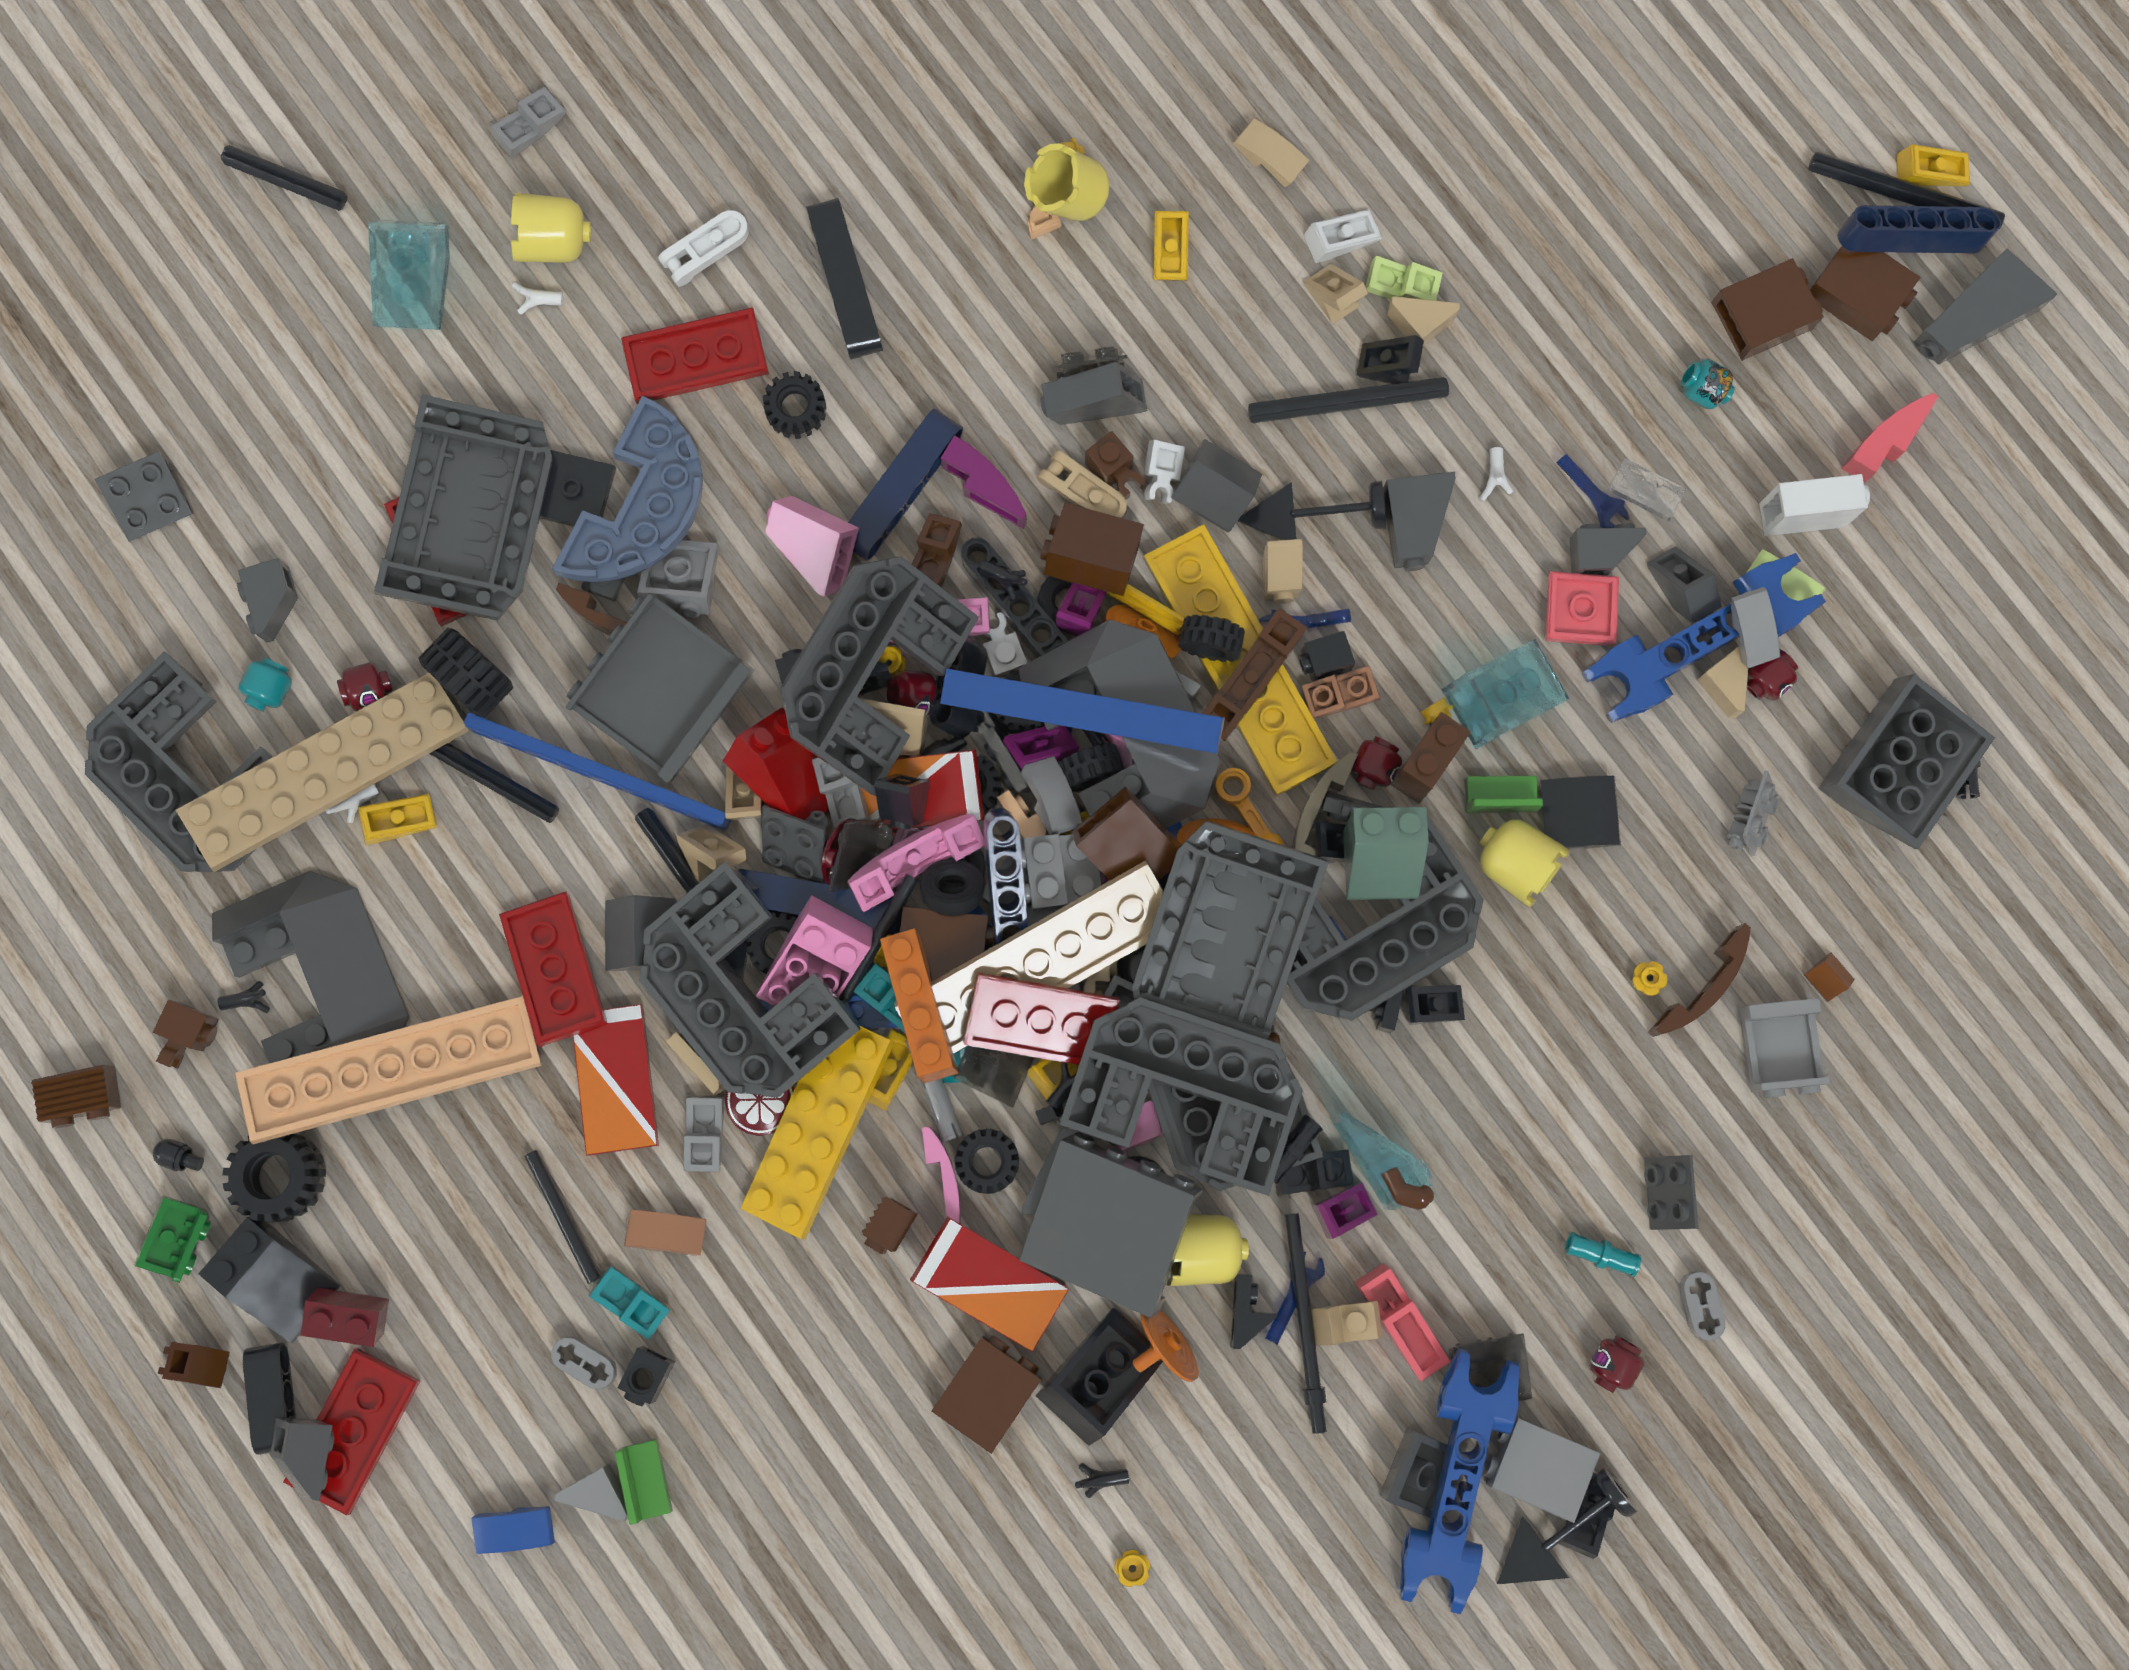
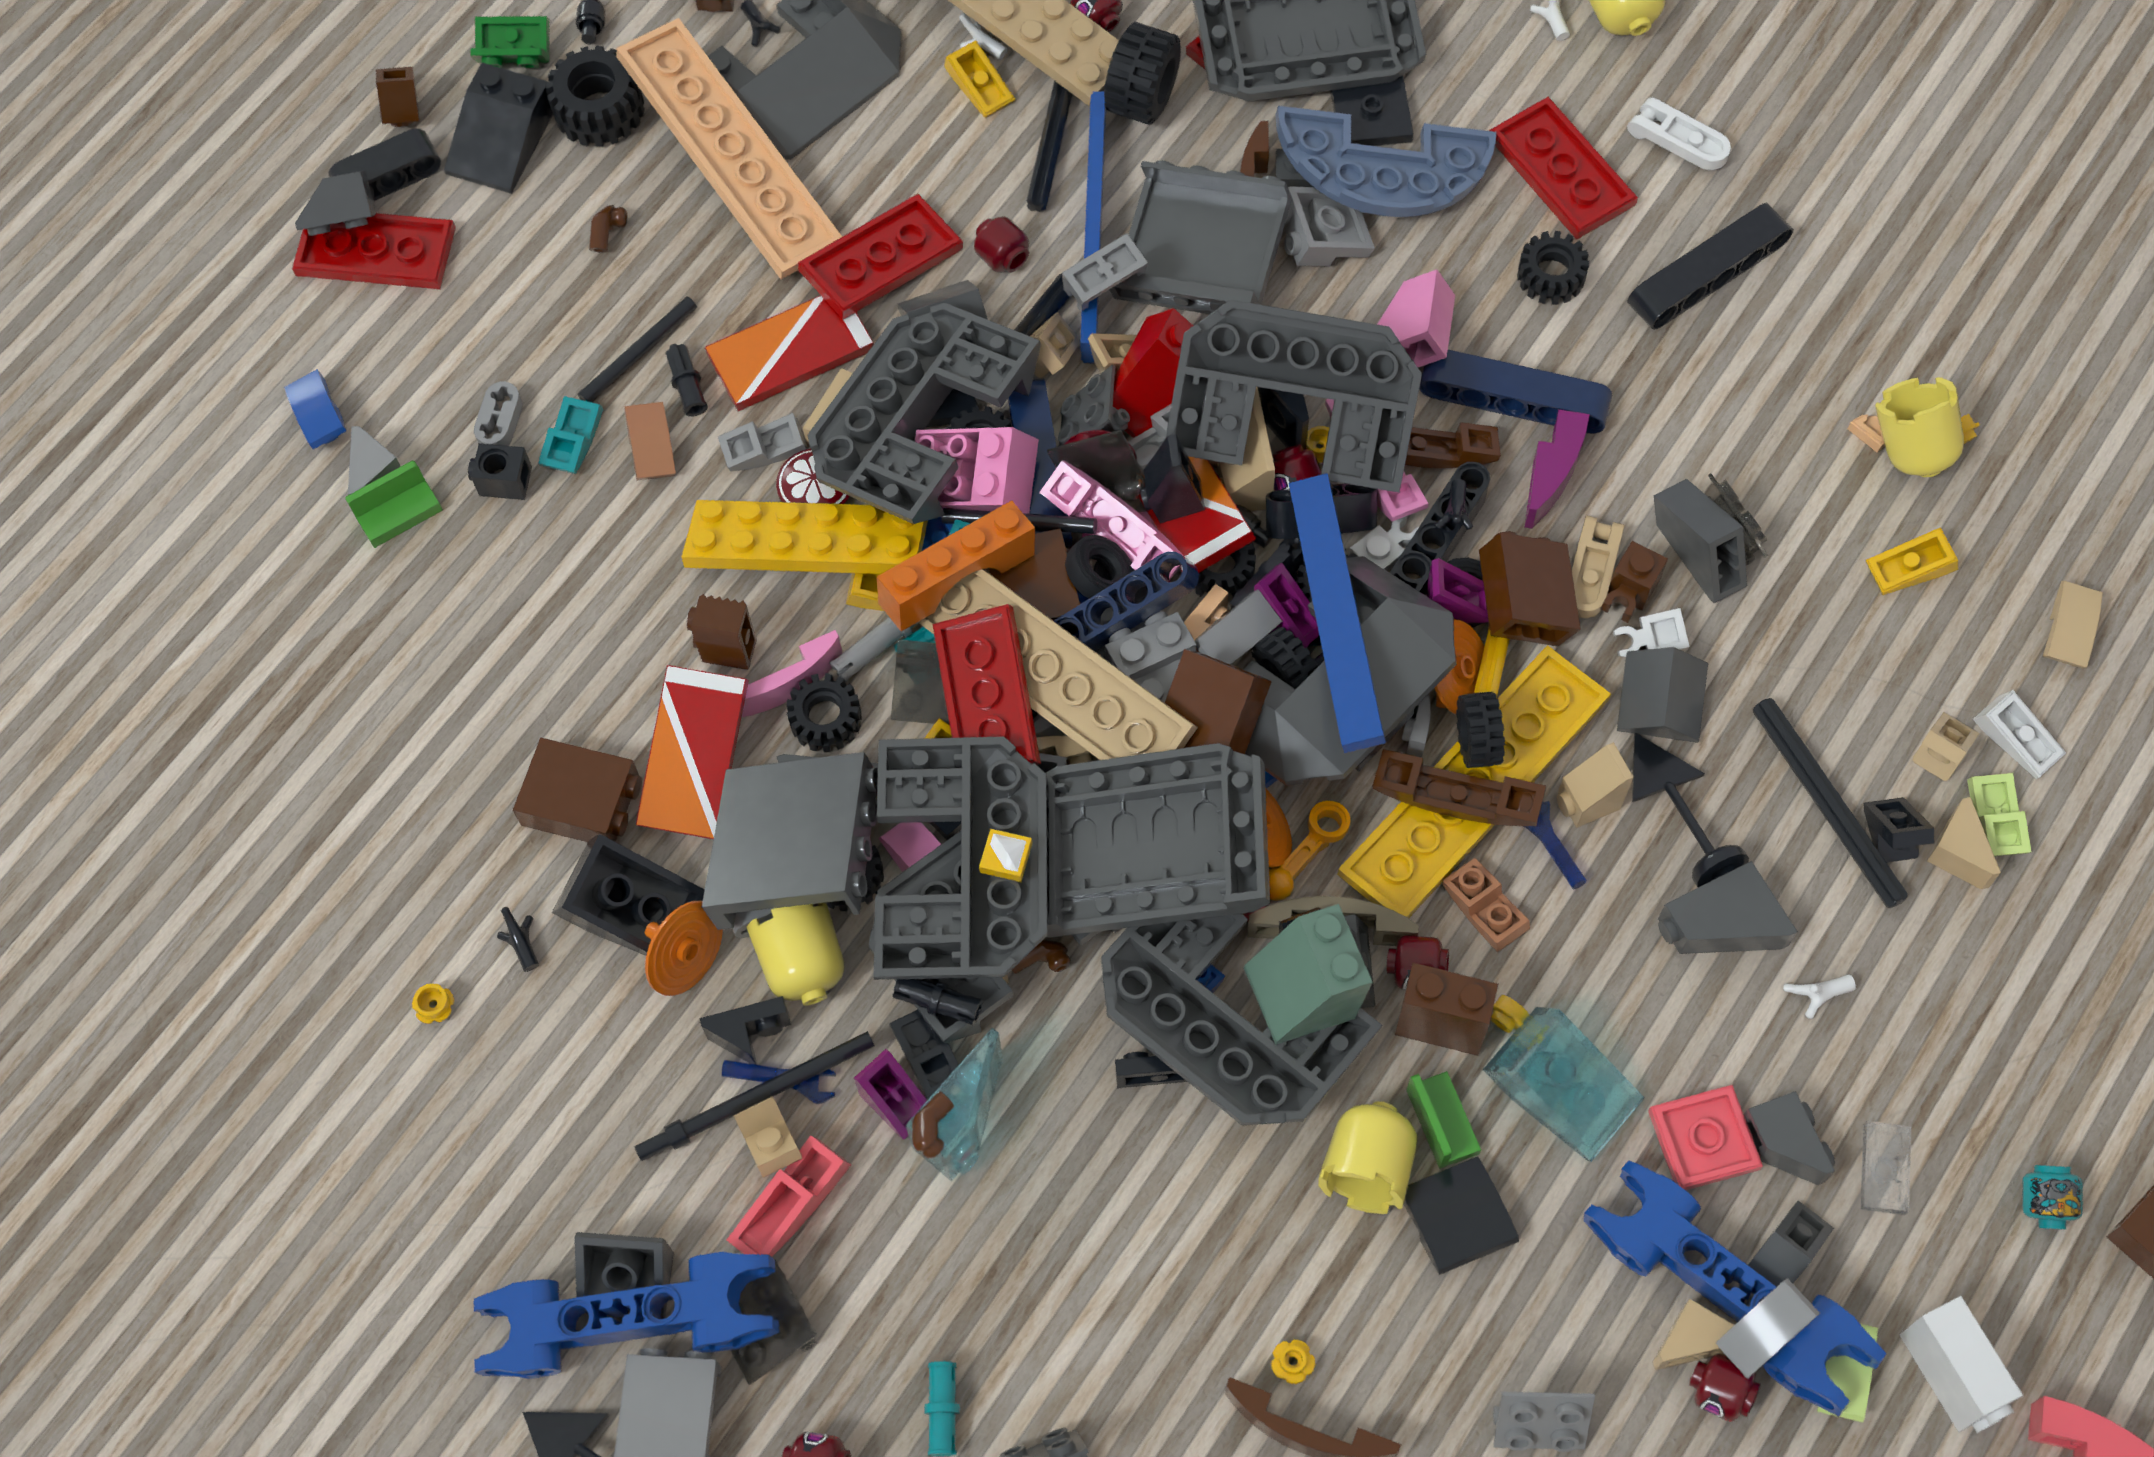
camera: 75 degrees right, 15 degrees down
(344, 1317) = (479, 196): dark red brick -> none
(416, 1210) = (603, 223): none -> reddish brown arm
(587, 859) = (1001, 244): none -> dark red head
(611, 1182) = (686, 380): none -> black axle
(671, 780) = (1103, 270): none -> light grey hinge
(1204, 1054) = (1005, 855): none -> tile
(1326, 656) = (1519, 871): black brick -> none
(1434, 1004) = (1164, 1113): black slope -> none
(1604, 505) = (1845, 1127): clear blue piece -> none

